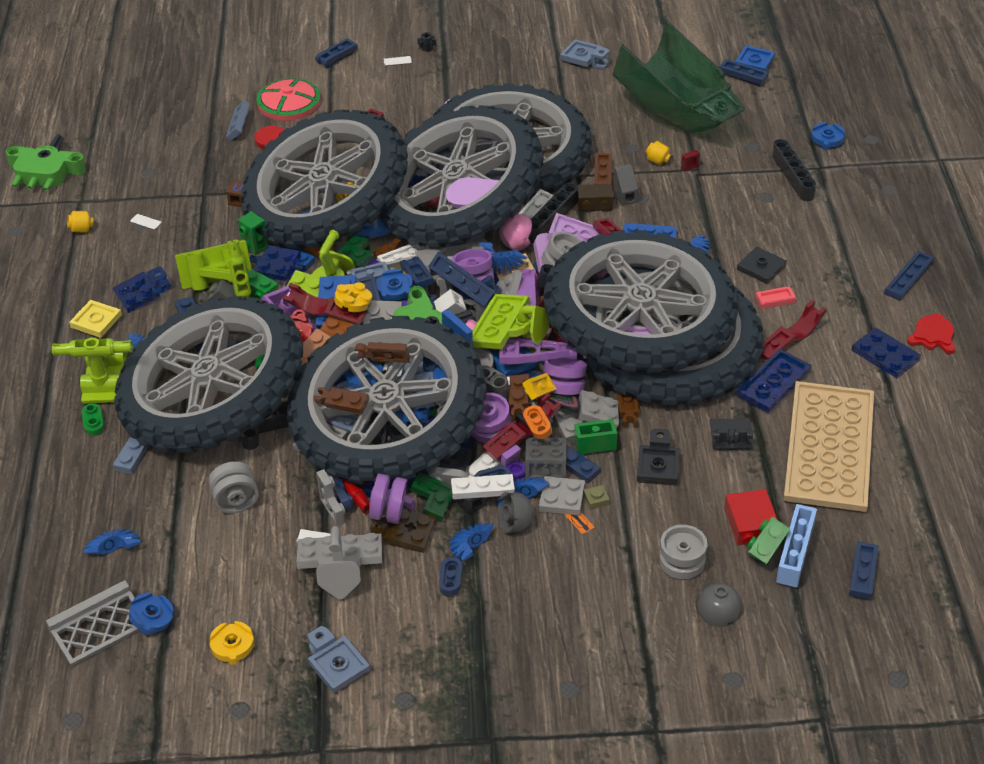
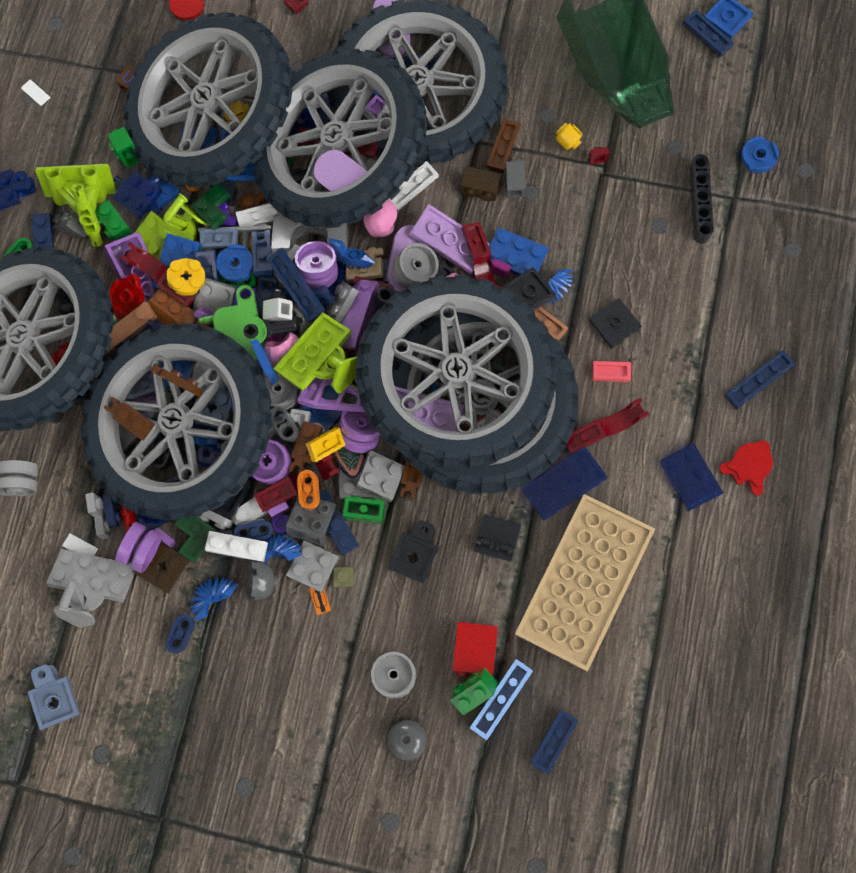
camera: 20 degrees right, 30 degrees up
(559, 203) = (433, 186): black beam -> none

